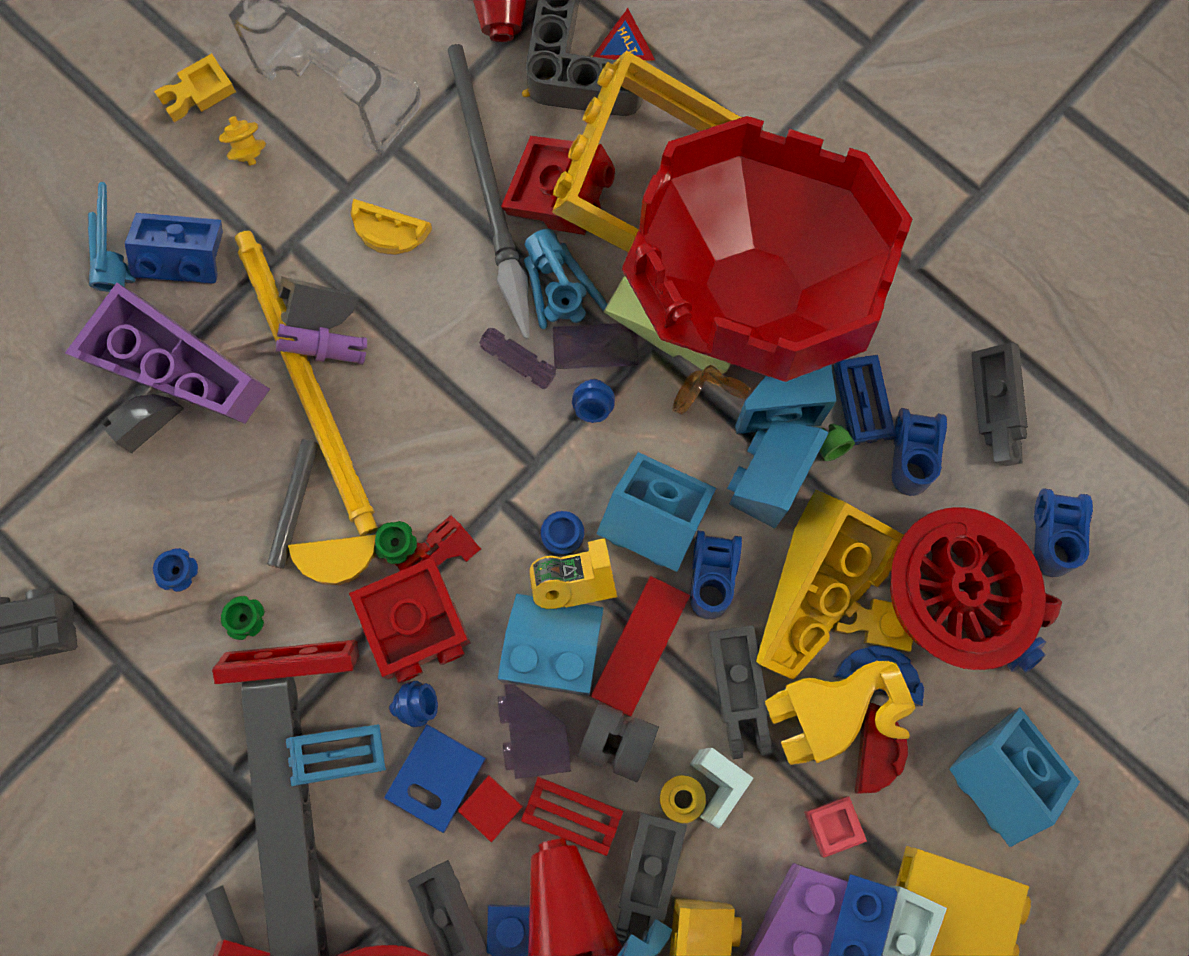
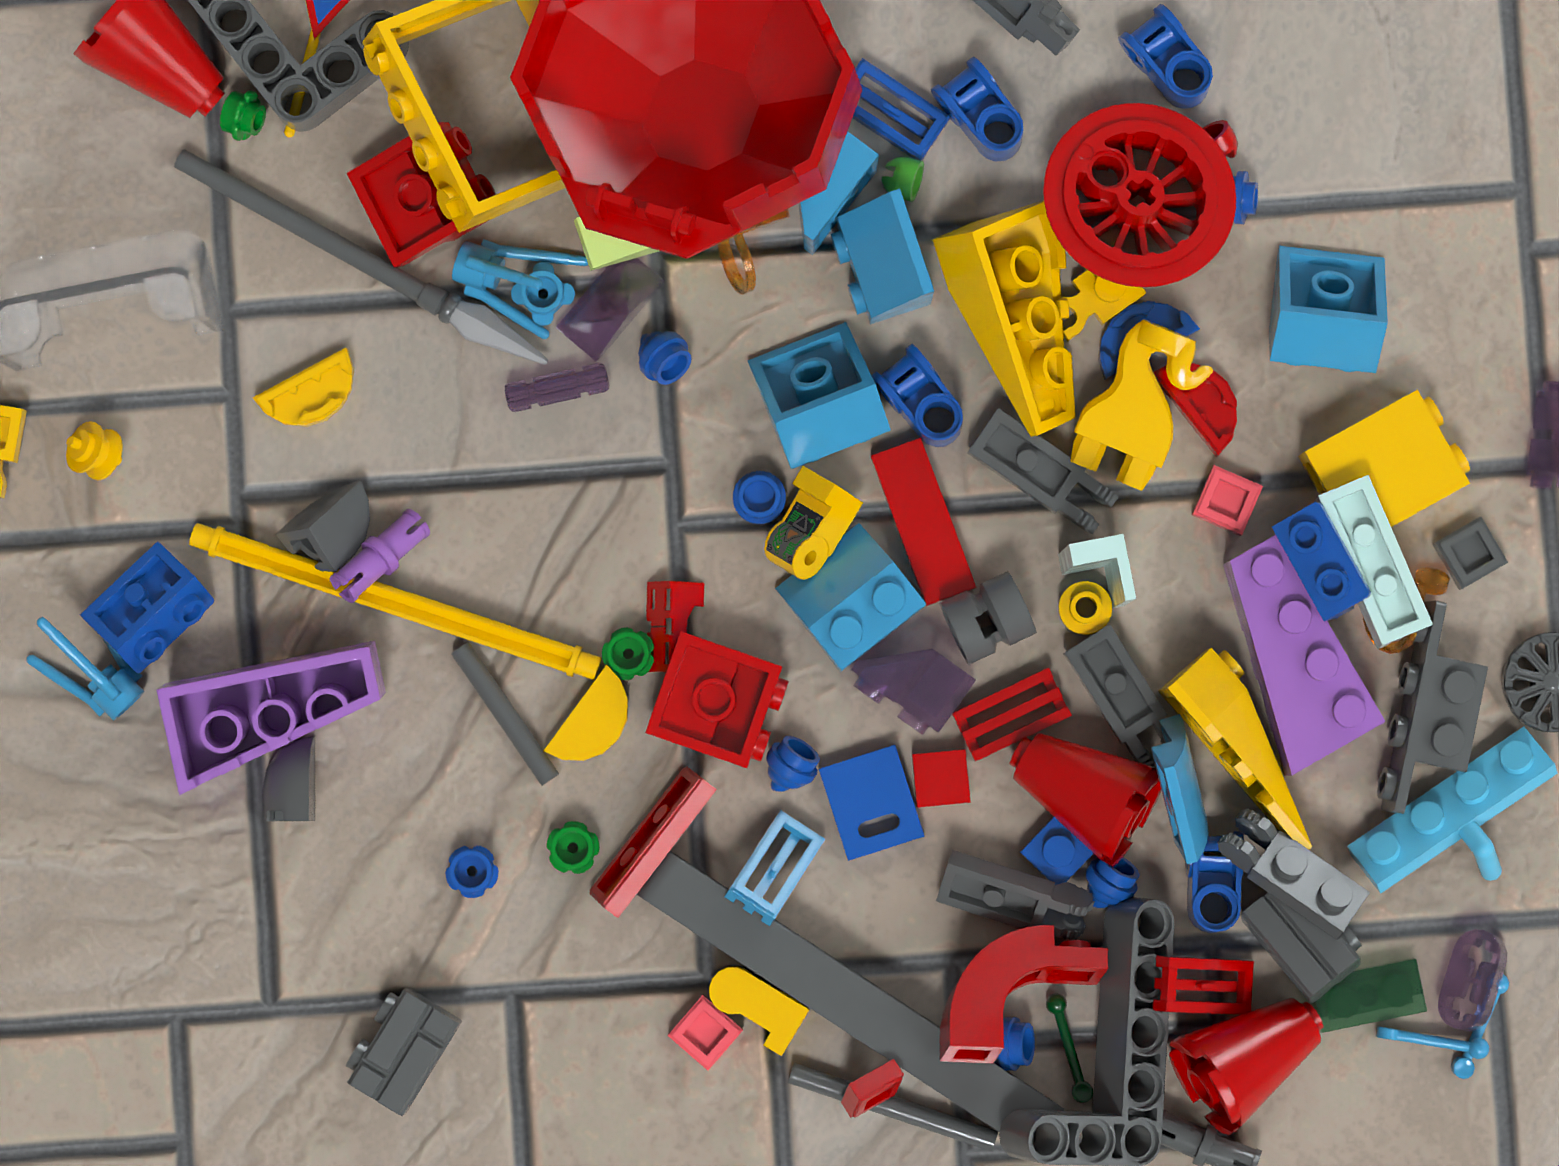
camera: 45 degrees left, 10 degrees up
(194, 809) = (705, 1032): none -> coral tile
(233, 807) = (742, 992): none -> yellow leg
(509, 55) = (242, 115): none -> green plate

